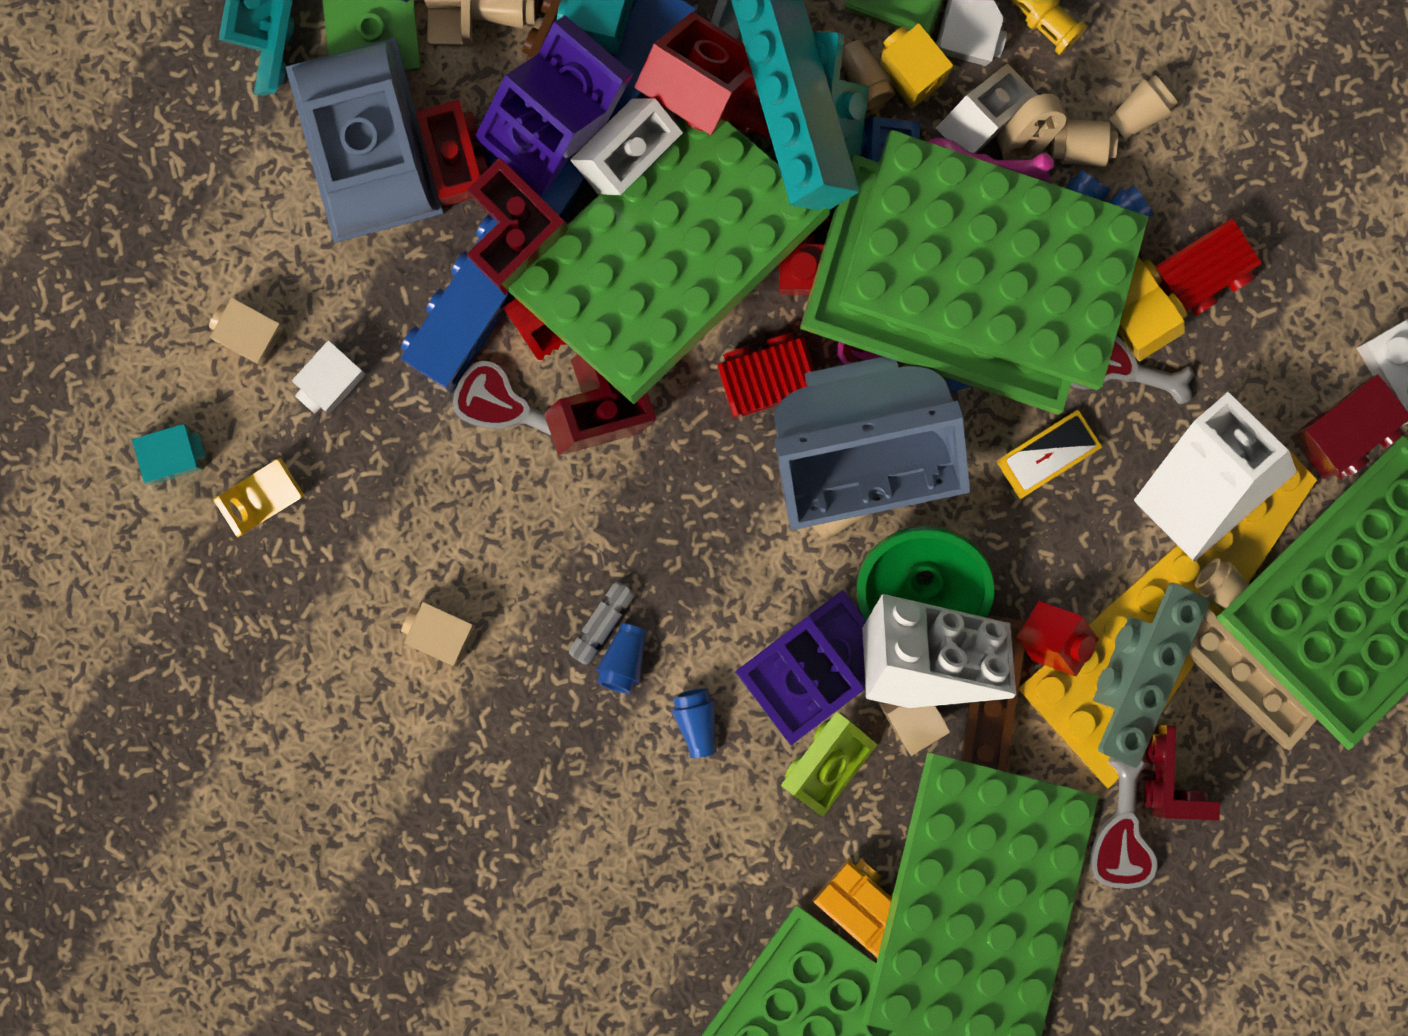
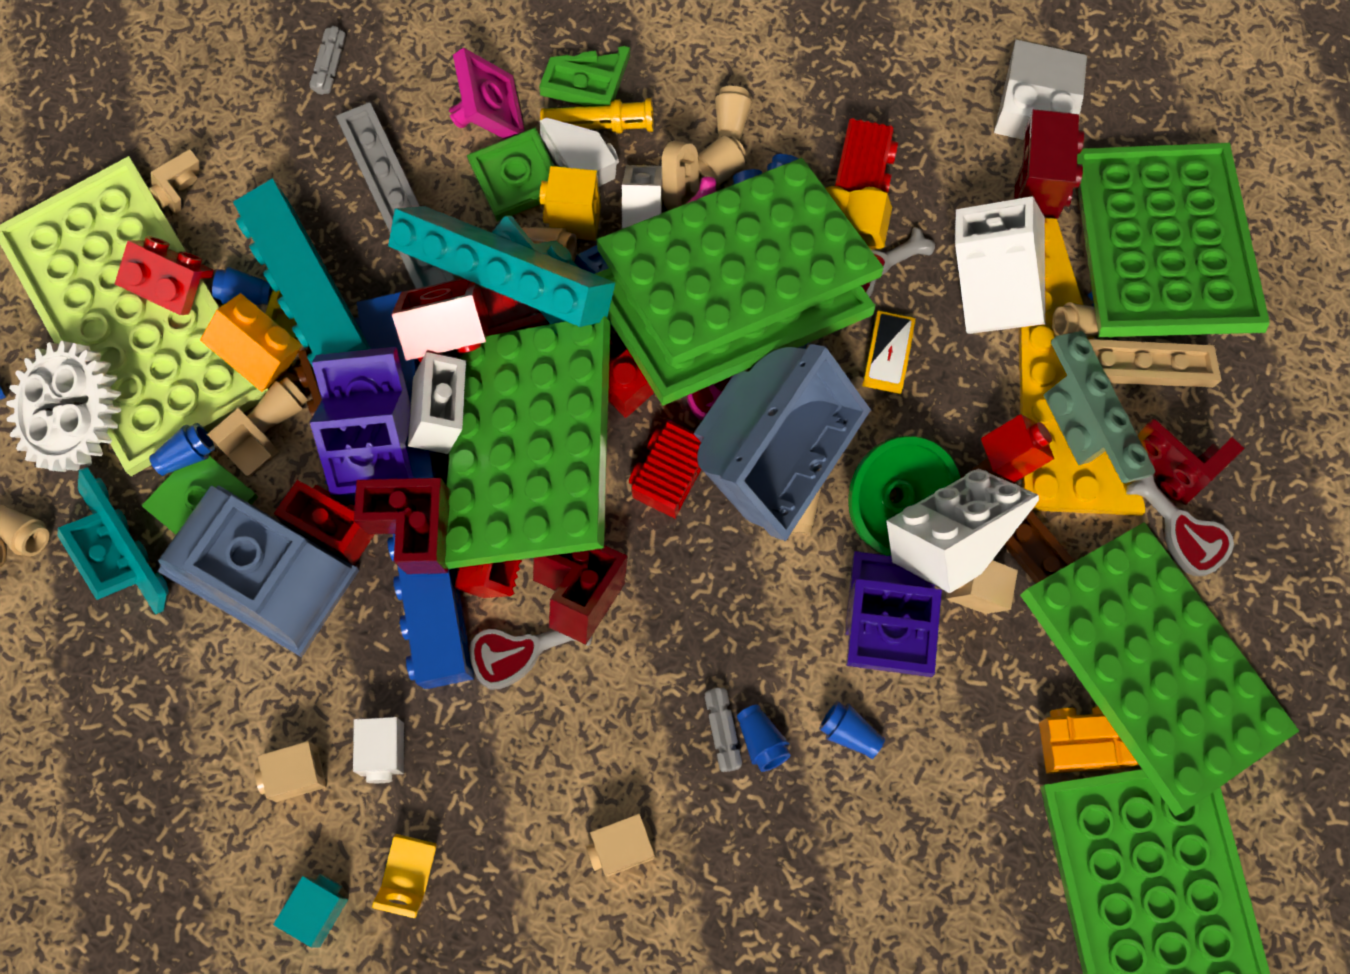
camera: 40 degrees left, 15 degrees down
(828, 763) = (968, 676): lime plate -> none

